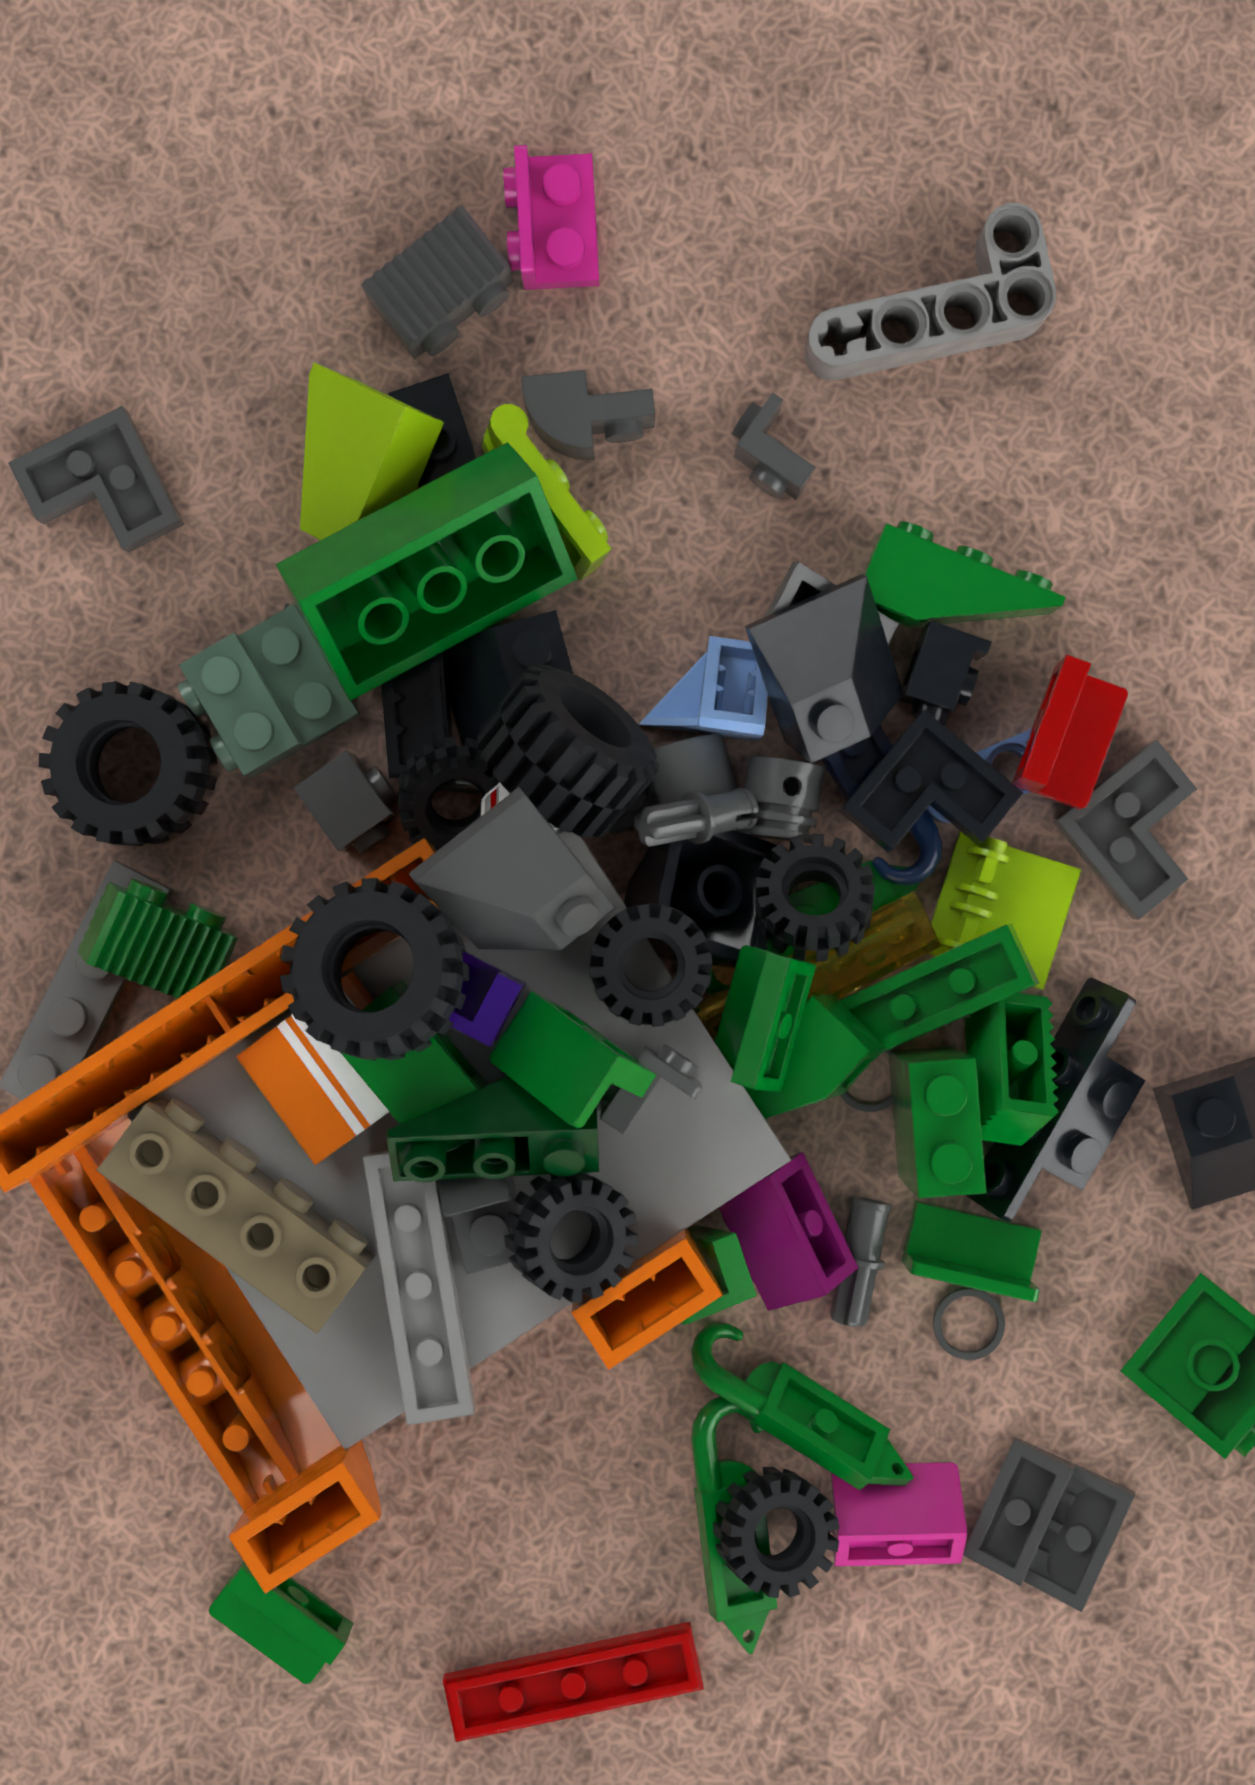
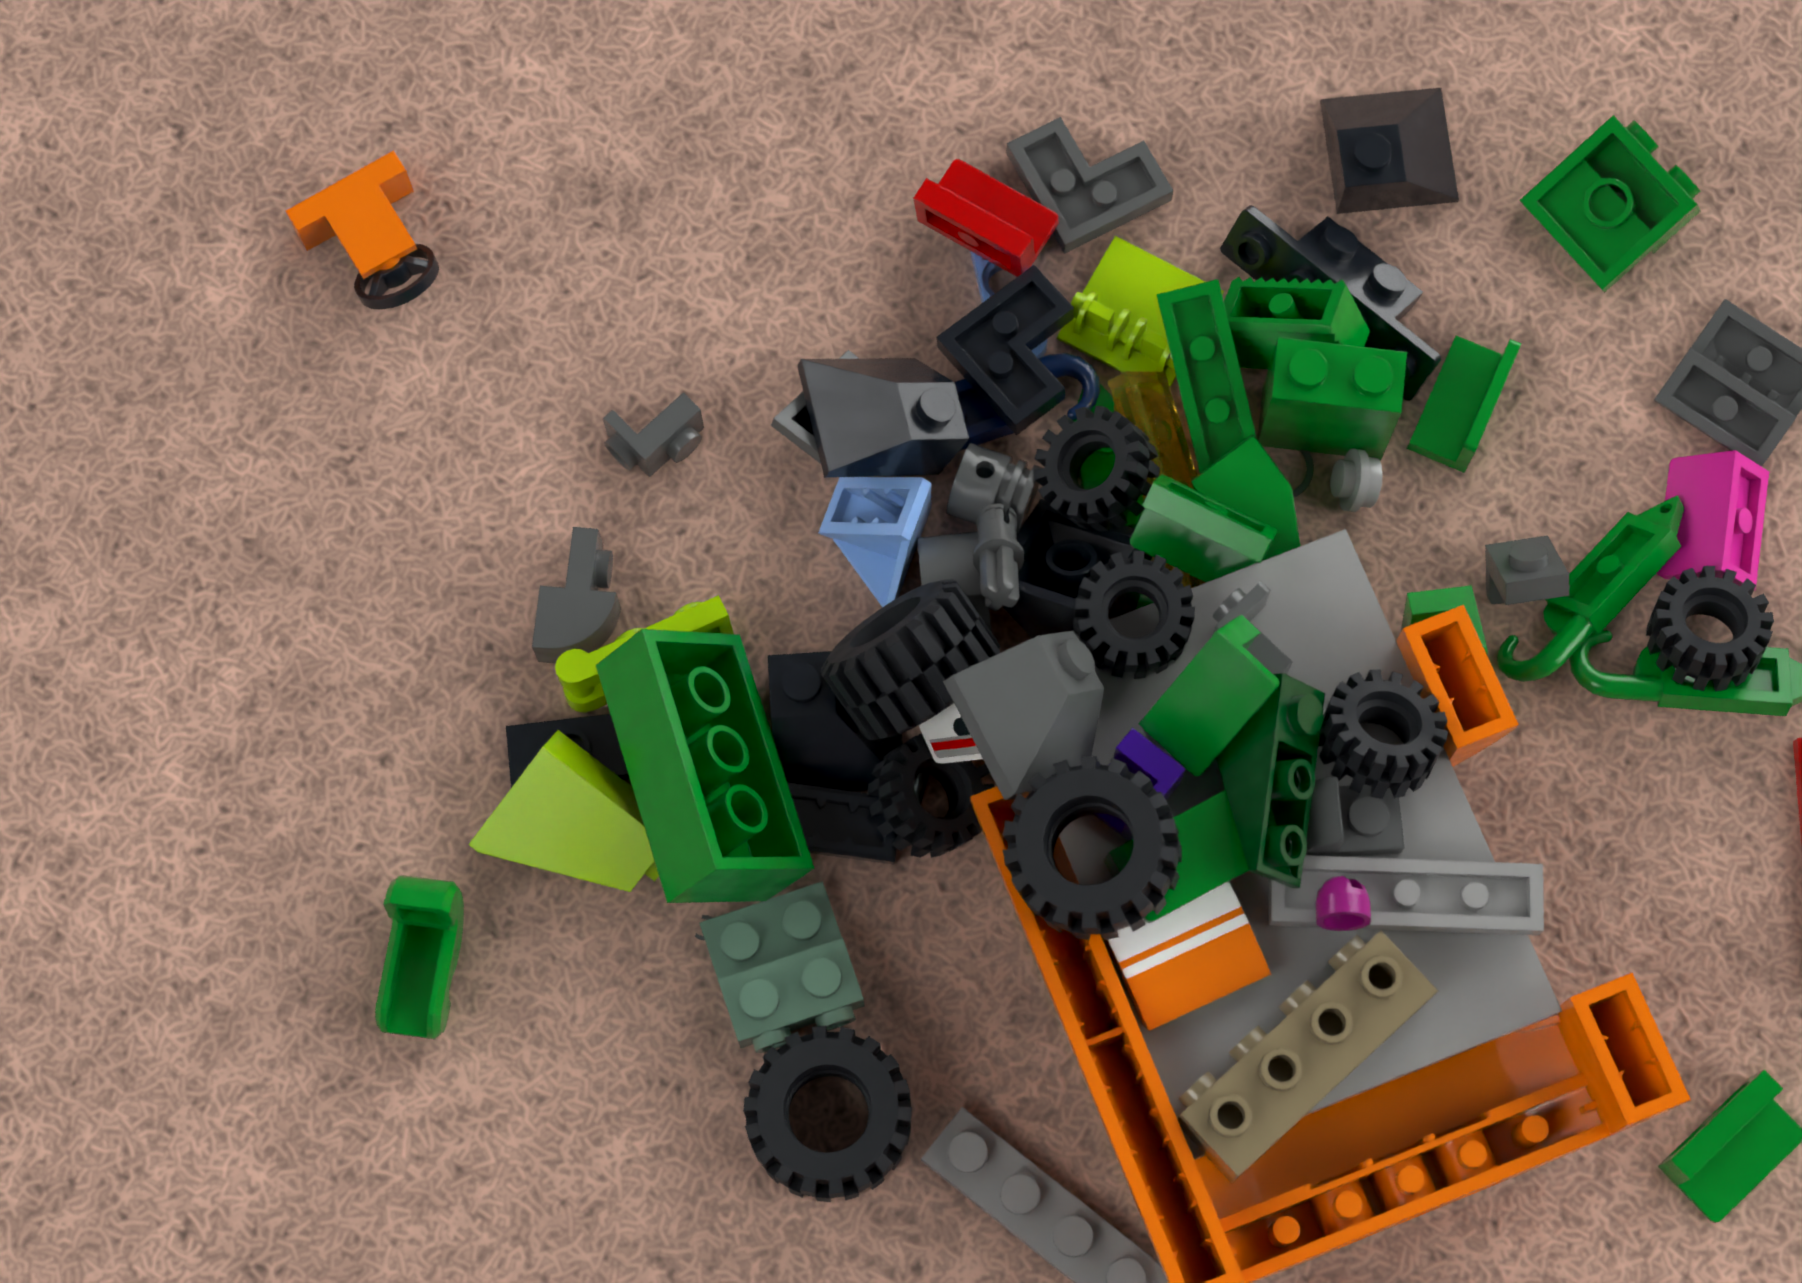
camera: 75 degrees left, 15 degrees down
(104, 463) = (515, 1079): dark grey plate -> none
(155, 942) = (1015, 1118): green brick -> none
(200, 344) = (419, 956): none -> green animal
(349, 803) = (912, 903): dark grey brick -> none
(387, 1225) = (1342, 905): none -> magenta hinge
(439, 284) = (417, 715): dark grey brick -> none
(554, 220) = (380, 596): dark pink bracket -> none
(789, 1236) = (1422, 555): magenta brick -> none
(798, 1343) = (1524, 571): none -> dark grey bracket
(865, 1240) = (1457, 508): dark grey axle -> none
(866, 1157) = (1356, 480): none -> light grey plate
(923, 308) = (557, 270): light grey beam -> none
(927, 110) = (370, 231): none -> orange piece
(927, 582) = (820, 302): green slope -> none
(942, 671) = (899, 320): black brick -> none
(969, 1355) = (1525, 449): dark grey piece -> none

